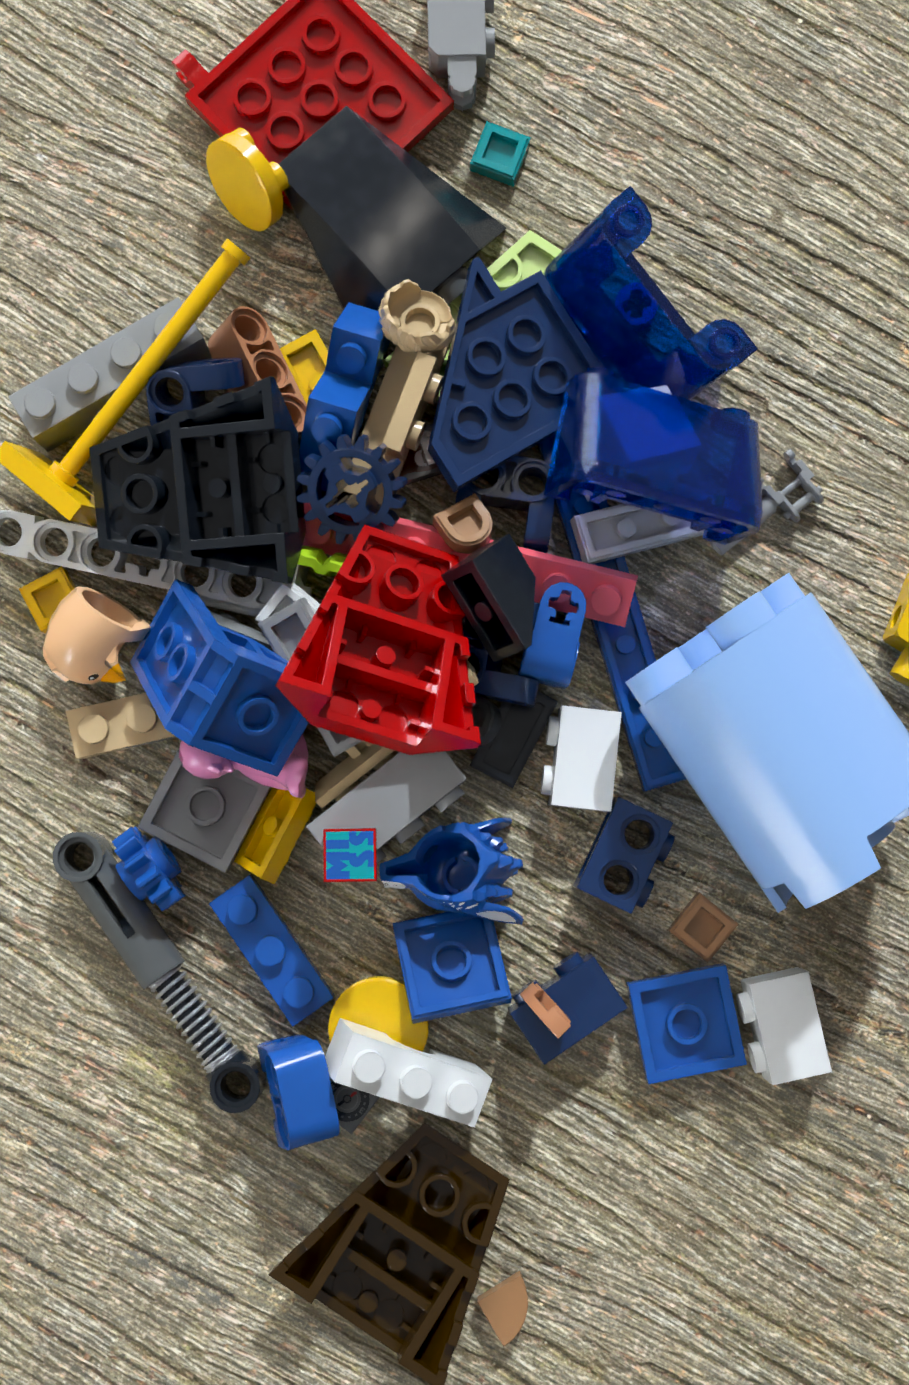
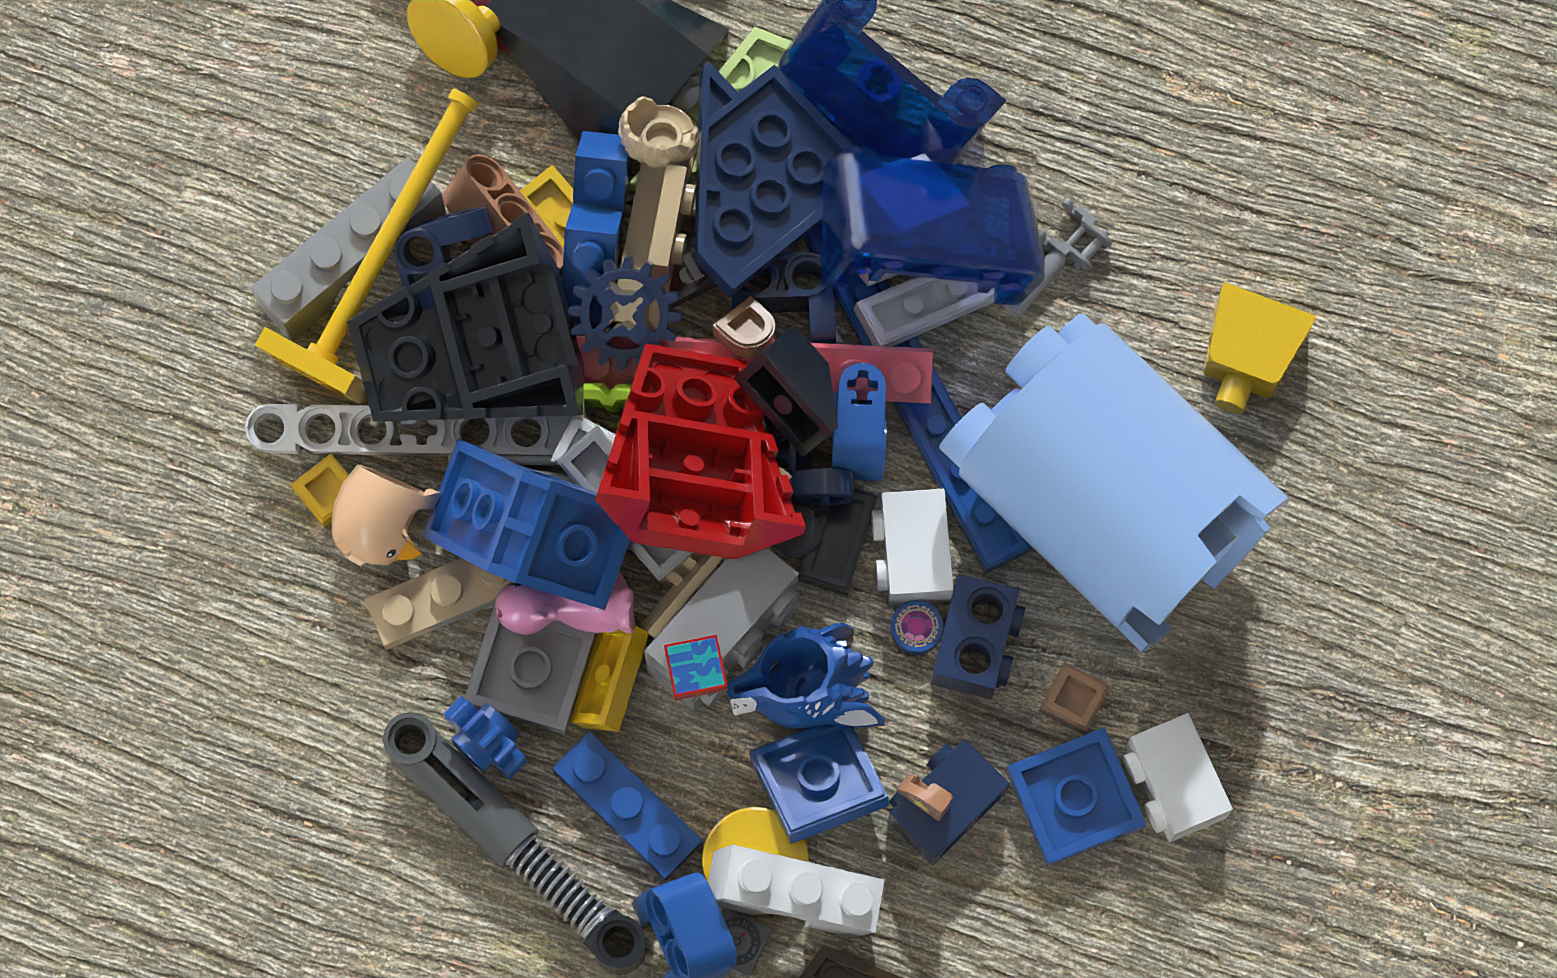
camera: 10 degrees left, 10 degrees down
(569, 833) = (916, 627): none -> tile

